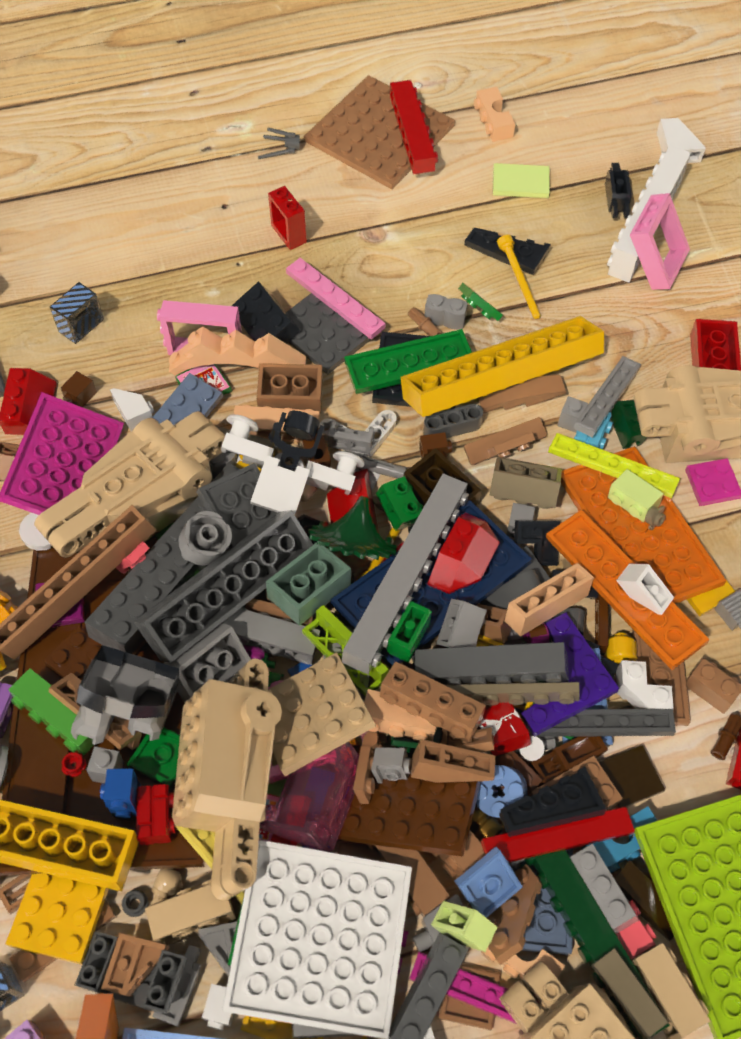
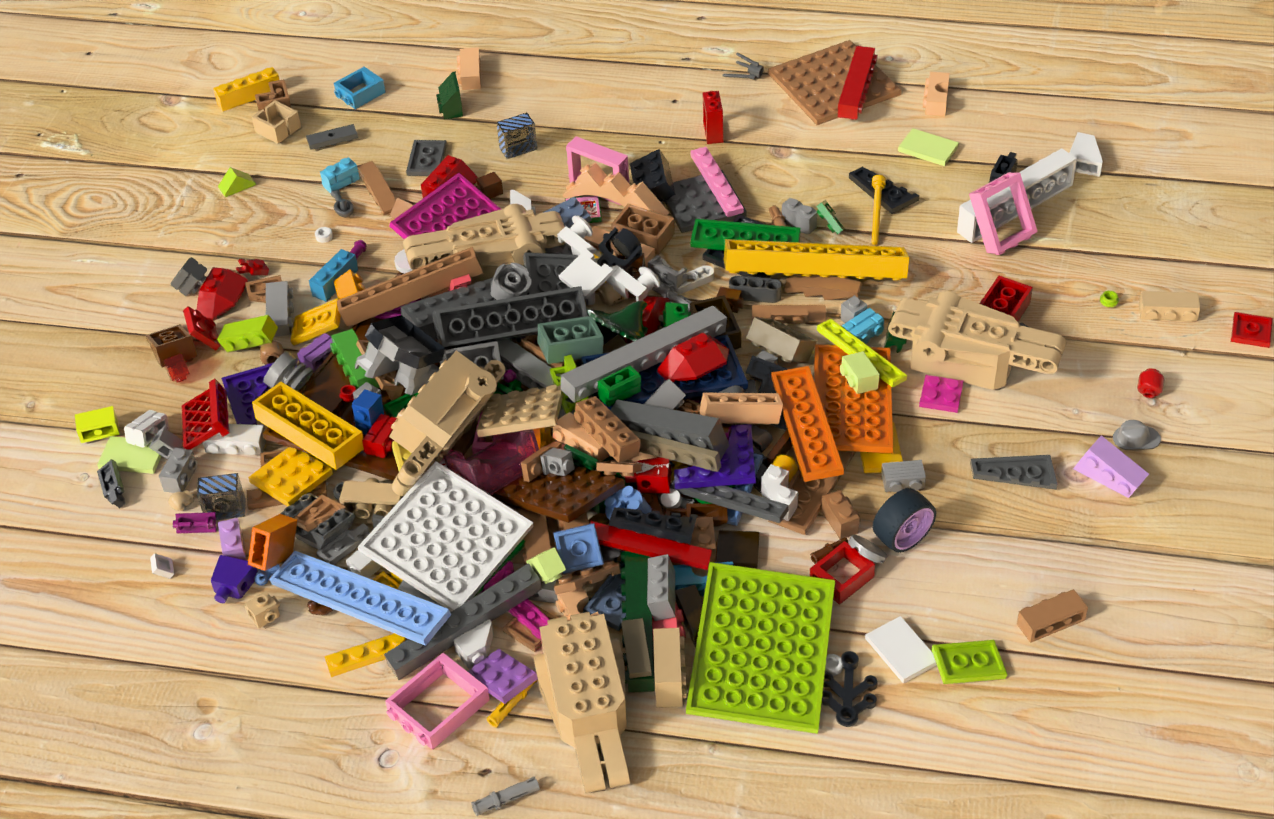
camera: 30 degrees right, 15 degrees down
(451, 764) = (594, 468): medium nougat slope -> none
(607, 396) = (882, 307): light grey tile -> none
(645, 587) = (816, 421): white slope -> none
(655, 517) = (862, 386): dark tan plate -> none

